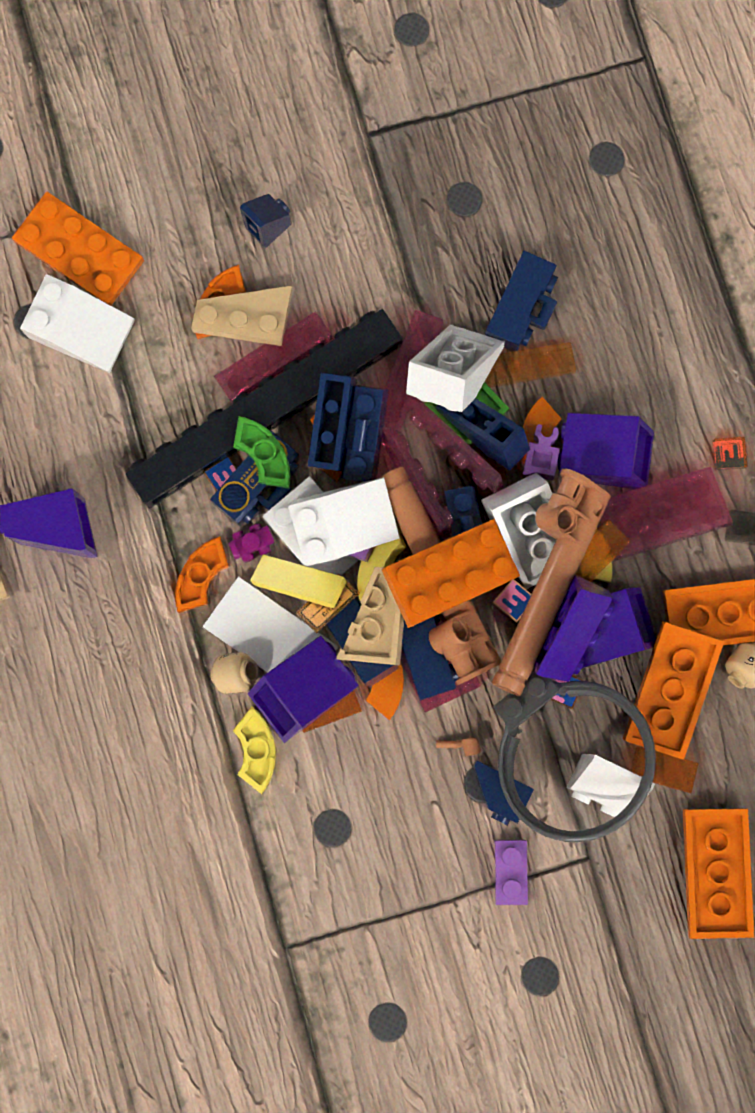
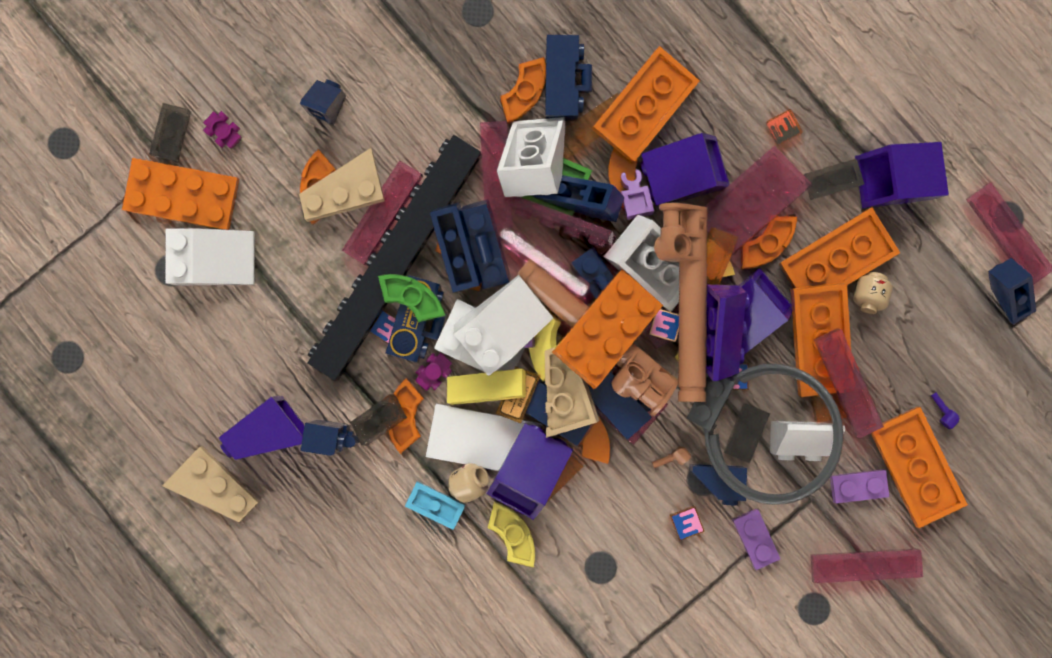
camera: 25 degrees left, 5 degrees up
(96, 183) = (170, 132): none -> clear smoke plate
(110, 557) = (327, 437): none -> dark blue piece
(152, 208) = (226, 133): none -> magenta piece
(171, 565) = (378, 420): none -> clear smoke plate
(189, 681) = (435, 505): none -> medium azure plate
(444, 821) = (686, 523): none -> tile
(477, 300) = (526, 91): none -> orange tile
(550, 754) = (746, 432): none -> clear smoke plate
(594, 365) = (645, 104): none -> orange plate
(617, 954) = (866, 565): none -> clear pink plate
(646, 865) = (859, 486): none -> medium lavender plate
(661, 567) = (770, 243): none -> orange tile
(681, 748) = (848, 383): none -> clear pink plate

